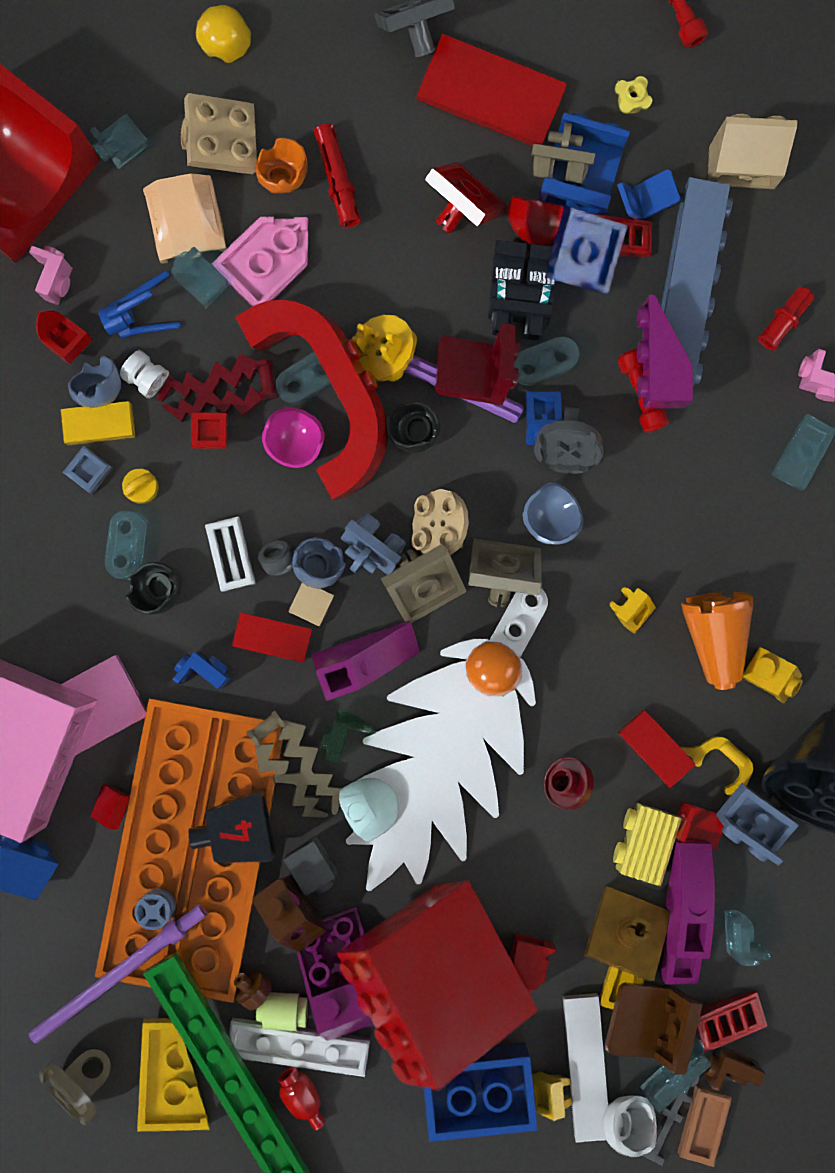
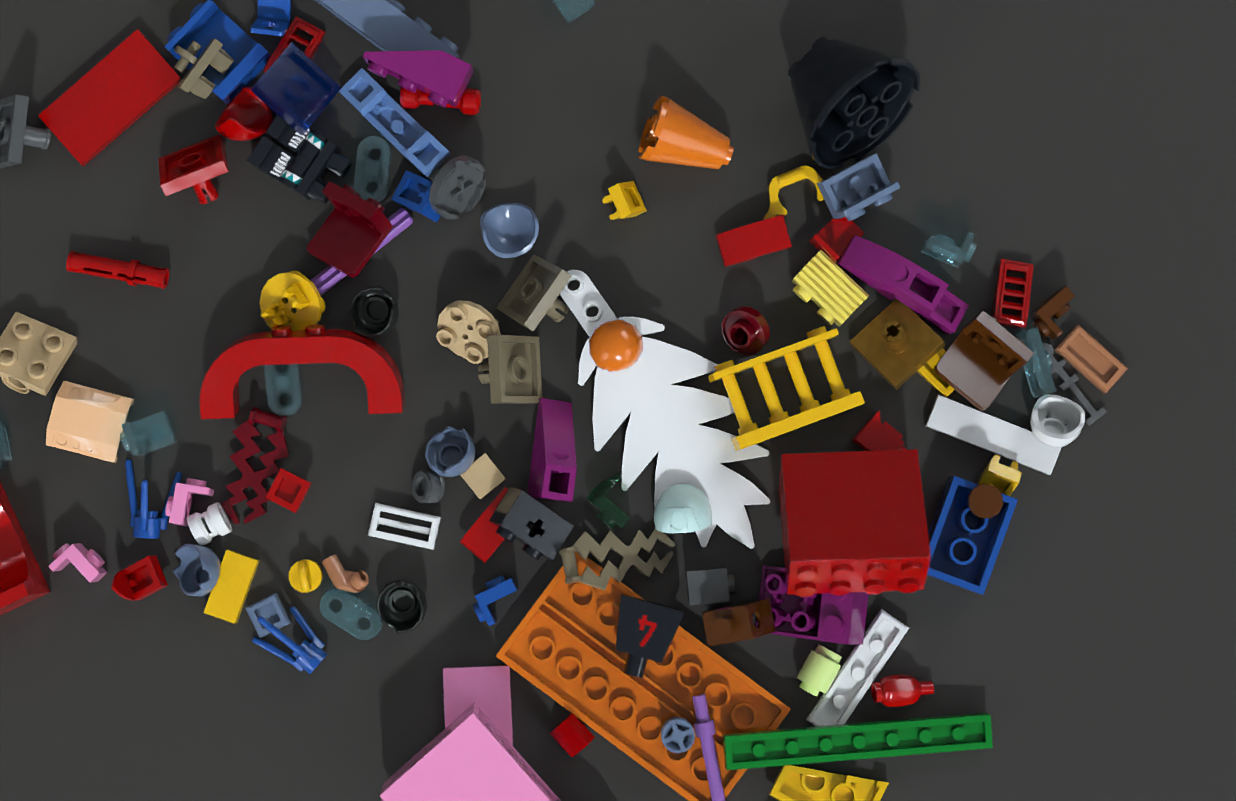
camera: 60 degrees left, 0 degrees up
(66, 523) = (306, 656): none -> blue plant
(153, 522) = (344, 579): none -> nougat arm
(154, 338) = (180, 504): none -> bright pink bracket
(252, 989) = (787, 687): reddish brown tile -> none
(265, 258) = (159, 368): bright pink tile -> none
(282, 166) = (86, 314): orange hair -> none
(291, 653) = (548, 528): none -> black brick
(293, 437) = (331, 420): dark pink helmet -> none
(368, 550) = (460, 403): sand blue hips -> none
(498, 860) = (780, 421): none -> yellow fence
(520, 1100) = (985, 501): none -> reddish brown tile
(599, 359) = (394, 123): none -> medium blue slope
(773, 675) = (740, 109): yellow bracket -> none

